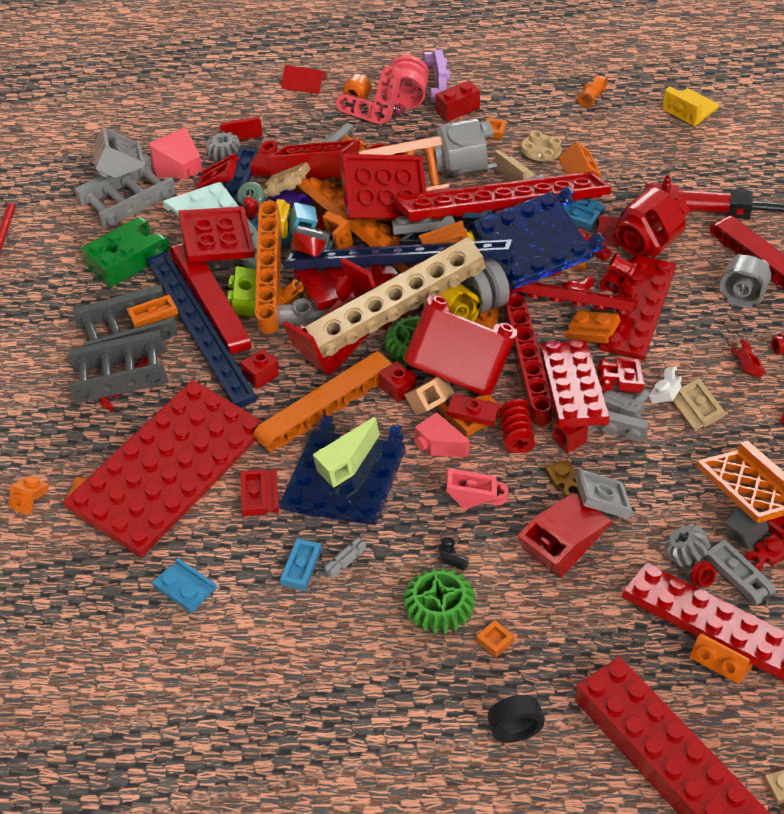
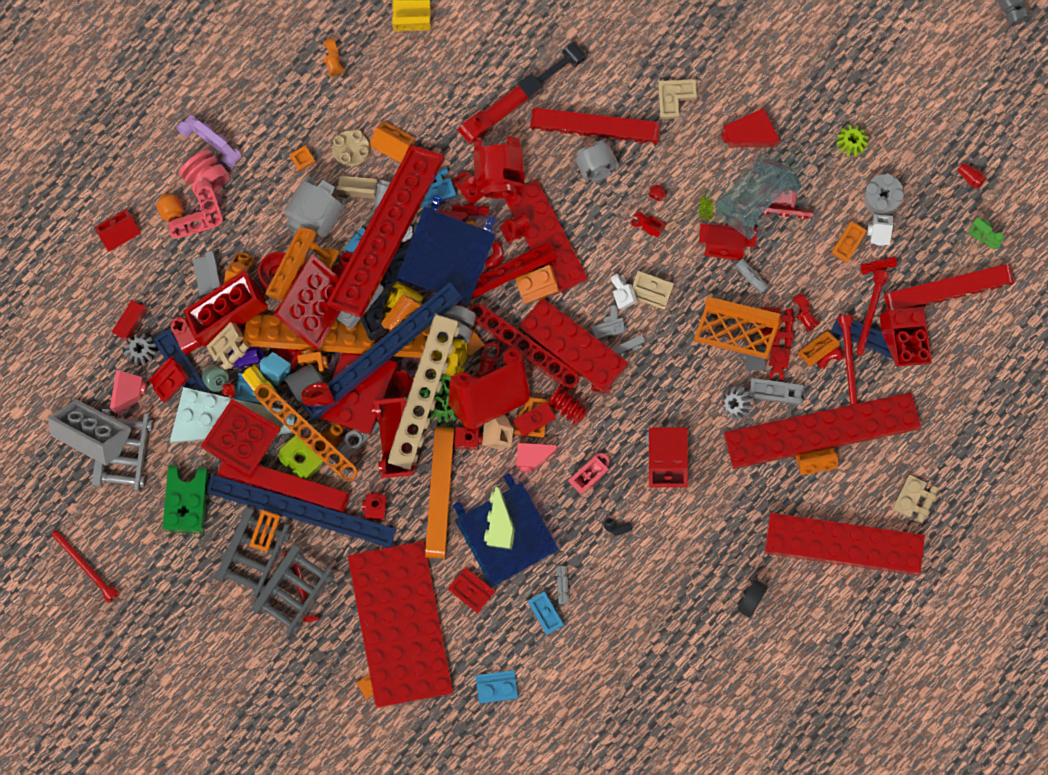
camera: 45 degrees left, 30 degrees up
(25, 492) = (342, 720): orange bracket -> none
(426, 609) = (634, 558): bright green gear -> none
(457, 101) = (253, 156): red brick -> none
(495, 638) = (692, 558): orange plate -> none
(563, 475) = (624, 414): pearl gold plate -> none
(603, 494) = (663, 410): light grey plate -> none
(623, 372) = (593, 304): red plate -> none
(703, 574) = (760, 412): red plate -> none

